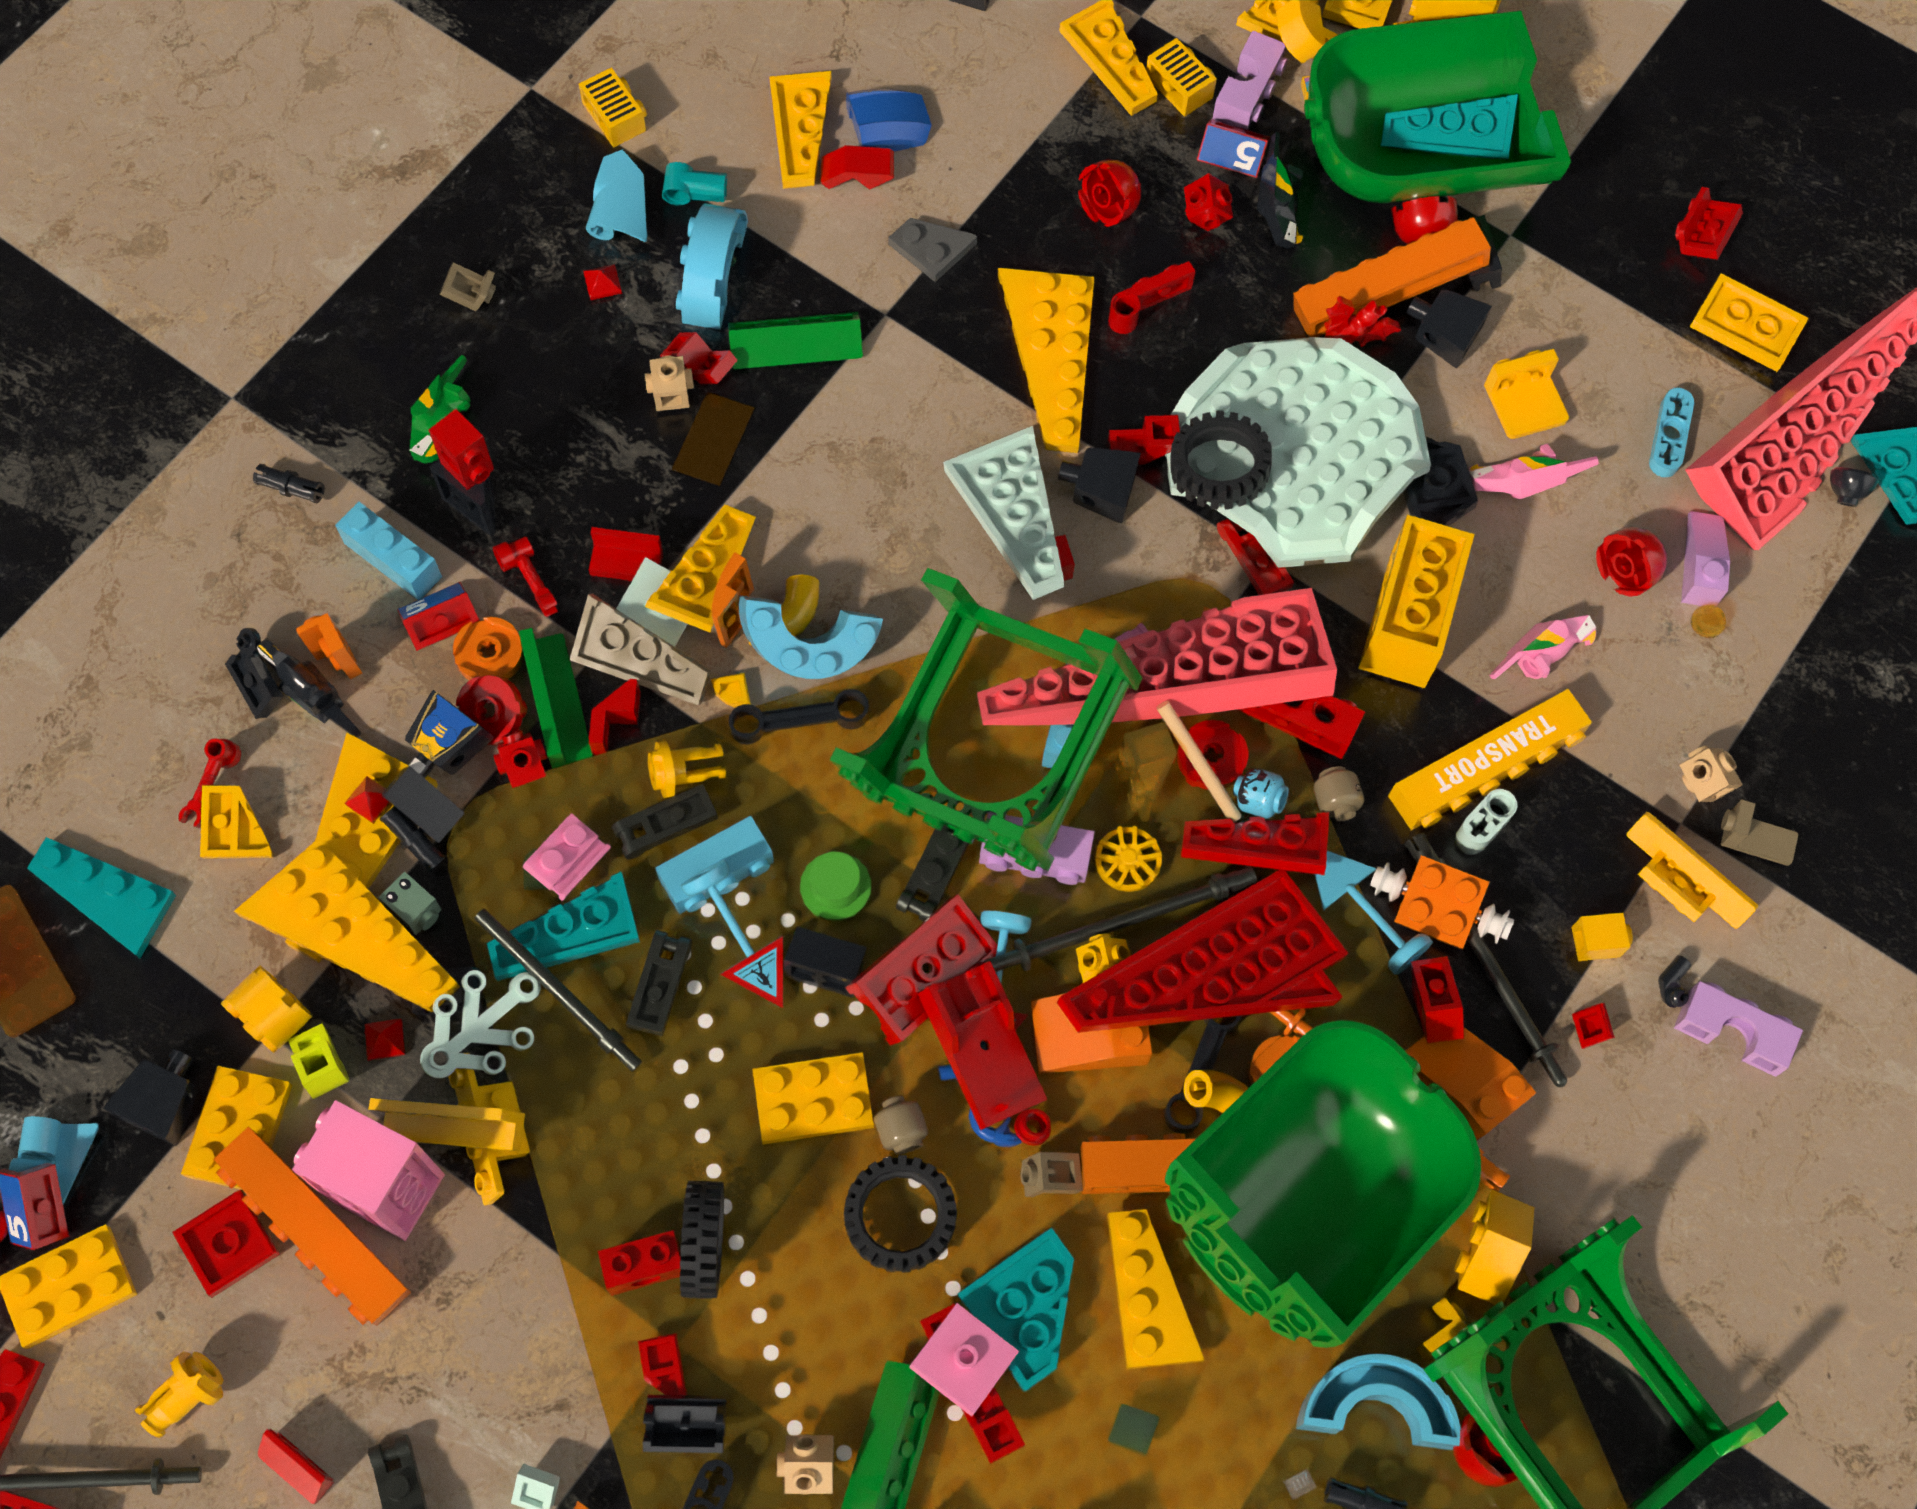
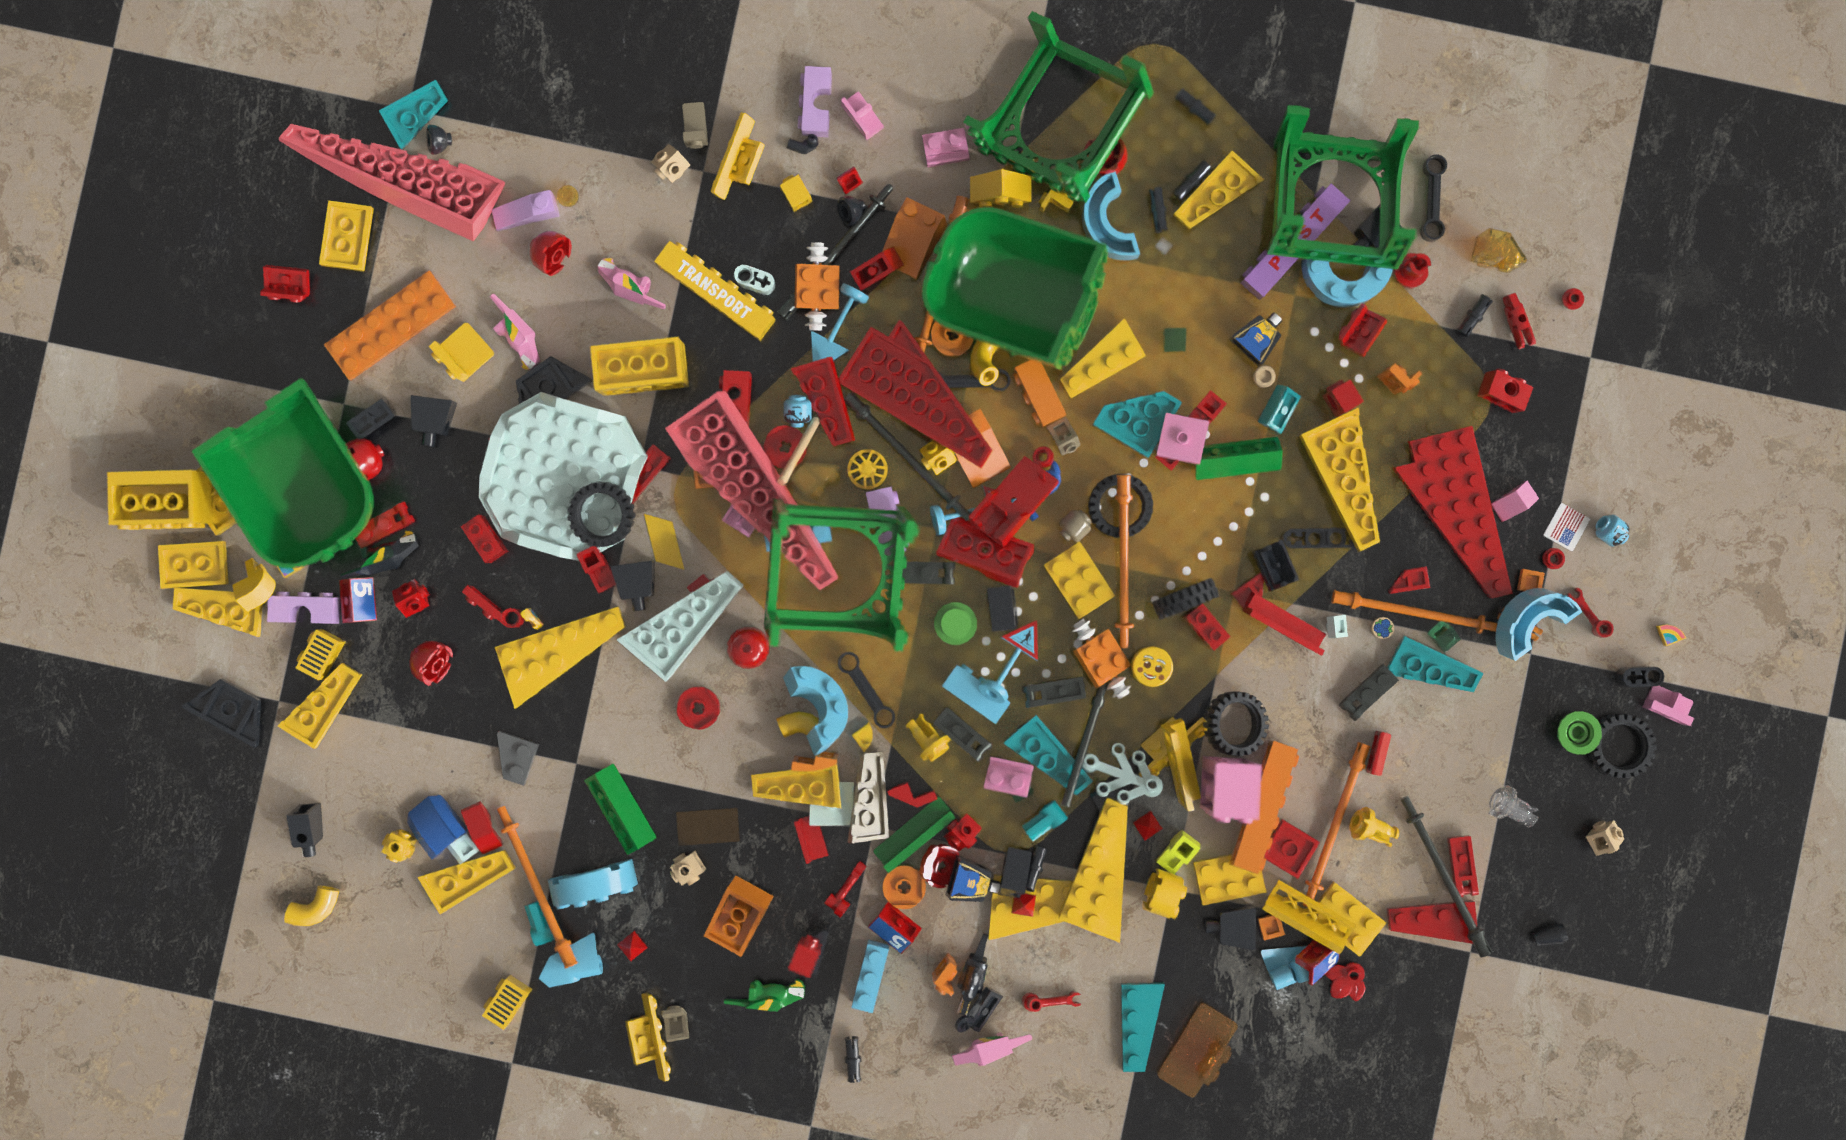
camera: 115 degrees left, 20 degrees up
(101, 1214) = (1306, 920): none -> yellow fence
(125, 1156) = (1270, 927): none -> orange plate
(191, 659) = (989, 1049): none -> bright pink animal
(230, 826) = (1071, 973): yellow wing -> none
(295, 1416) = (1356, 765): none -> orange bar
(410, 904) = (1070, 849): sand green brick -> none
(421, 1245) = (1257, 729): none -> black tyre
(471, 242) = (646, 1038): none -> yellow bracket
(475, 886) = (1049, 817): none -> teal piece
(571, 422) = (738, 915): none -> orange slope
(582, 1398) = (1284, 623): none -> red fence
(623, 1148) = (1151, 666): none -> yellow head
(651, 191) = (562, 944): none -> orange bar
(674, 1075) = (1101, 658): none -> orange plate
(706, 365) = (660, 860): red slope -> none
(807, 1464) = (1267, 495): tan brick -> none
(840, 133) = (463, 848): none -> light aqua plate
(878, 506) = (710, 710): none -> red plate
(884, 65) = (403, 840): none -> yellow brick
(909, 1213) = (1123, 498): none -> orange bar
(919, 596) = (748, 647): none -> red cylinder
(1114, 337) = (529, 615): none -> yellow tile
(1144, 546) = (664, 541): none -> yellow sticker
(1250, 319) = (484, 538): none -> red brick
(1322, 214) = (384, 525): none -> red plate
(1339, 793) = (775, 368): dark tan head -> none
(1359, 326) = (464, 475): red animal -> none
(1396, 275) = (418, 463): orange brick -> none
(1461, 129) = (286, 463): teal wing -> none
(1546, 1007) = (850, 209): none -> black brick
(1593, 1196) = (945, 147): none -> bright pink plate
(1601, 329) = (390, 325): none -> orange plate
(1662, 442) = (461, 250): medium azure beam -> none
(1692, 1089) = (862, 115): none -> bright pink panel

